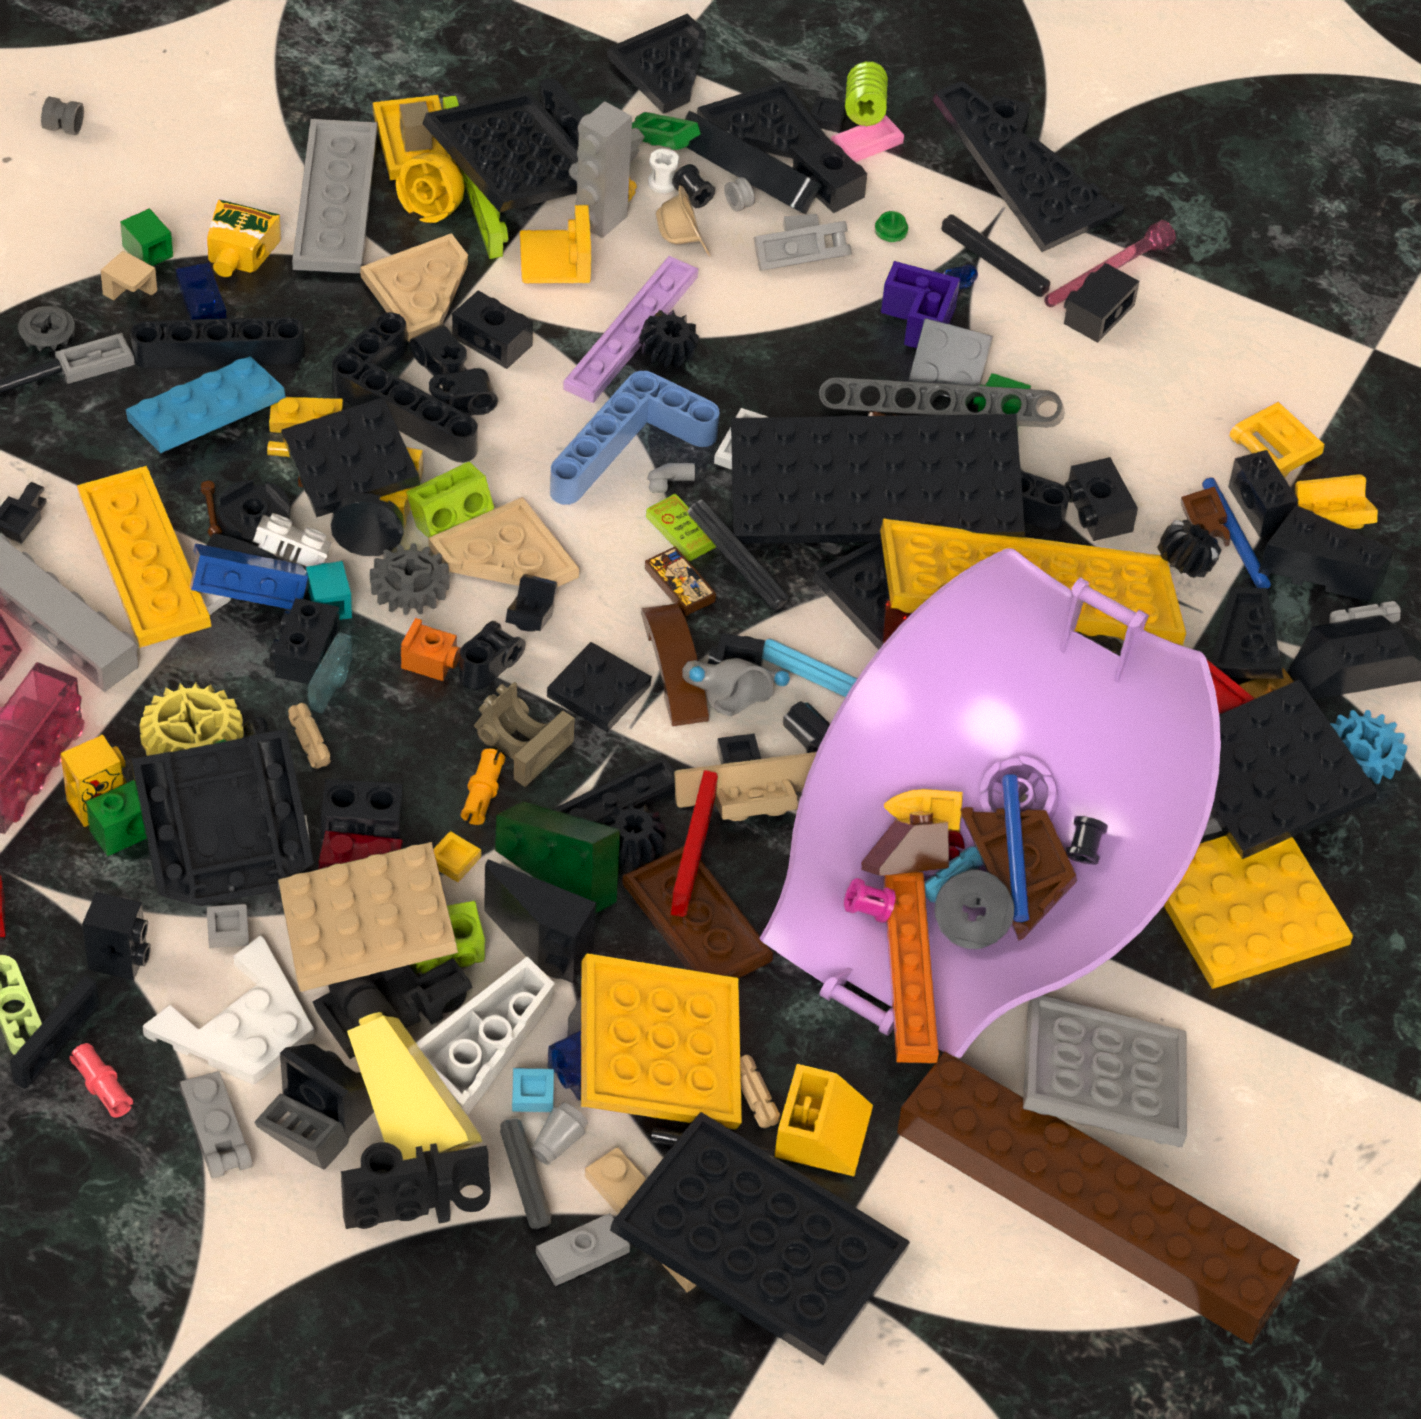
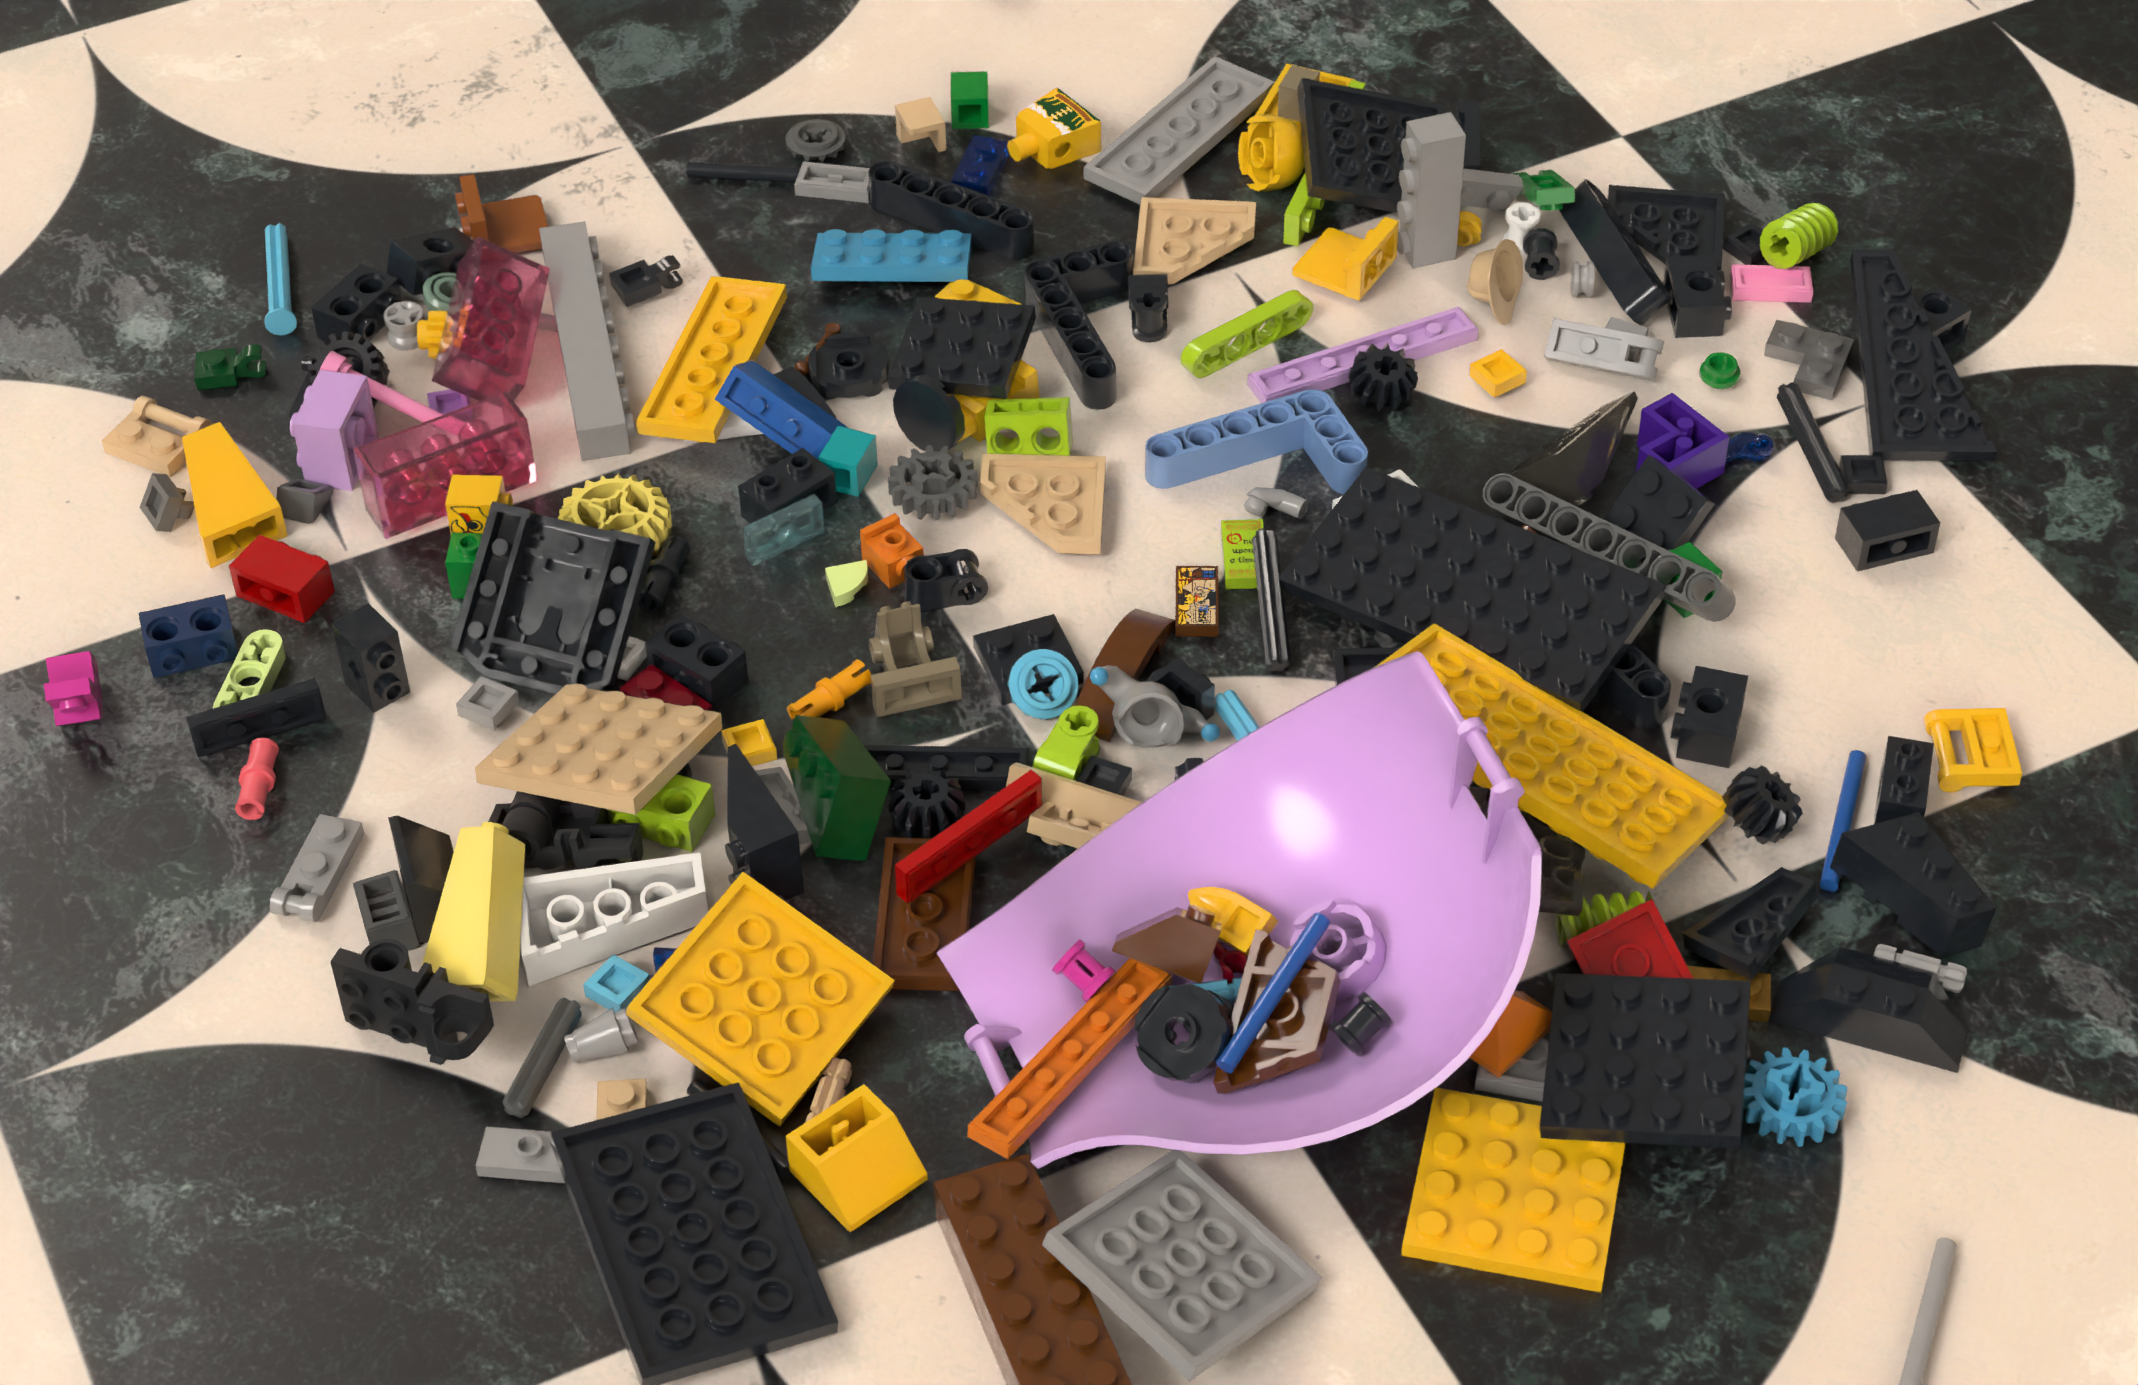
camera: 40 degrees right, 5 degrees down
(248, 1033) = (435, 798): white wing -> none
(277, 528) = (846, 394): white hinge -> none
(309, 735) = (717, 577): tan axle -> none
(409, 691) = (846, 581): none -> yellowish green tile
(465, 391) = (1138, 343): black piece -> none
(492, 329) = (1215, 293): black brick -> none
(533, 603) = (1026, 559): black bracket -> none
(536, 347) = (1210, 351): none -> lime beam
(649, 699) = (1047, 664): none -> medium azure gear
(663, 61) = (1617, 133): black plate -> none
(697, 737) = (1069, 743): none -> lime piece
(742, 298) = (1498, 373): none -> yellow plate
(852, 339) = (1580, 457): none -> clear smoke wedge
(941, 180) = (1818, 353): none -> flat silver plate
(1048, 263) = (1864, 474): none -> black tile
(1157, 237) = (2013, 495): clear pink piece -> none
(1207, 511) = (1819, 781): reddish brown plate -> none
(1338, 500) = (1984, 835): yellow bracket -> none

